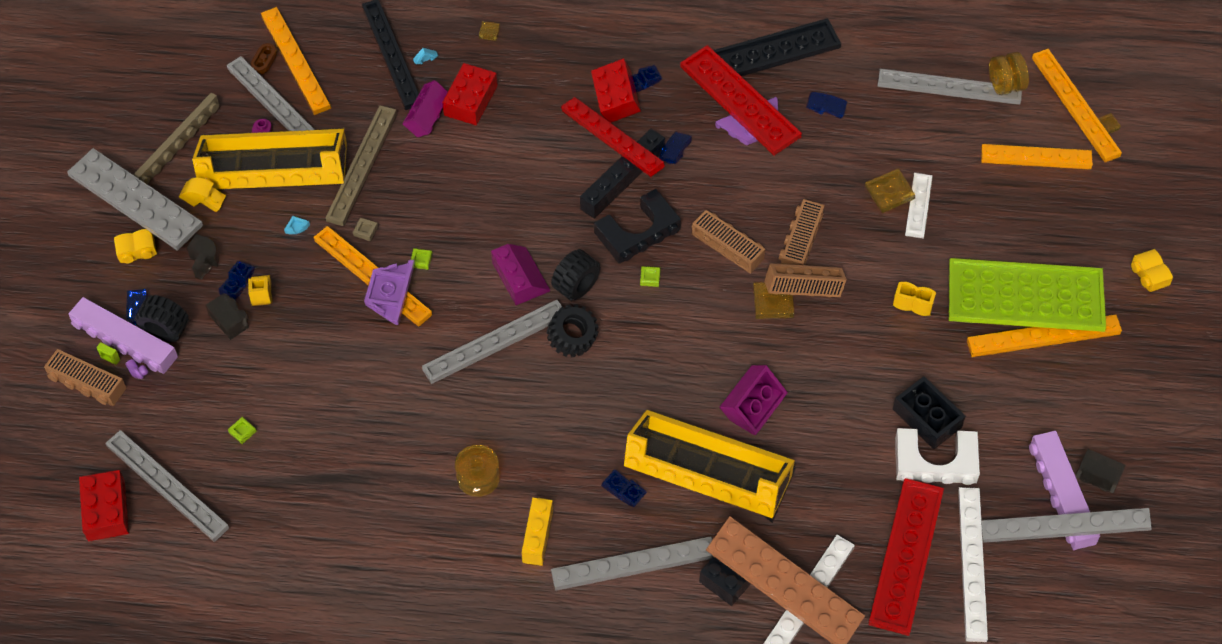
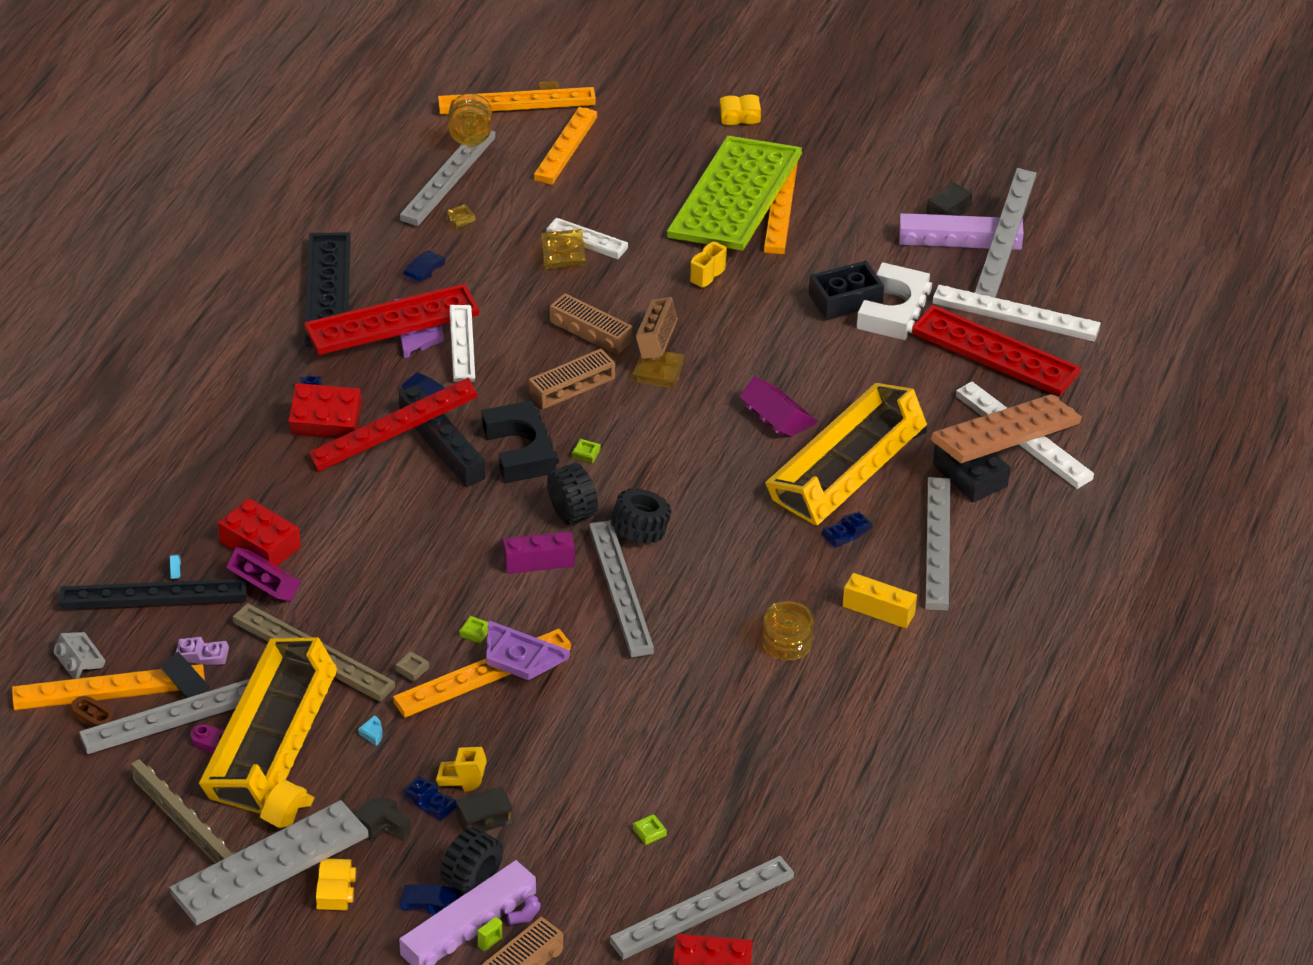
camera: 75 degrees left, 15 degrees down
(307, 96) = (184, 676): none -> black tile
(318, 32) = (77, 653): none -> light grey bracket
(344, 100) = (198, 652): none -> lavender slope
(489, 30) = (164, 504): clear yellow tile -> none
(733, 154) = (462, 342): none -> white tile
(901, 110) = (461, 215): none -> clear yellow plate

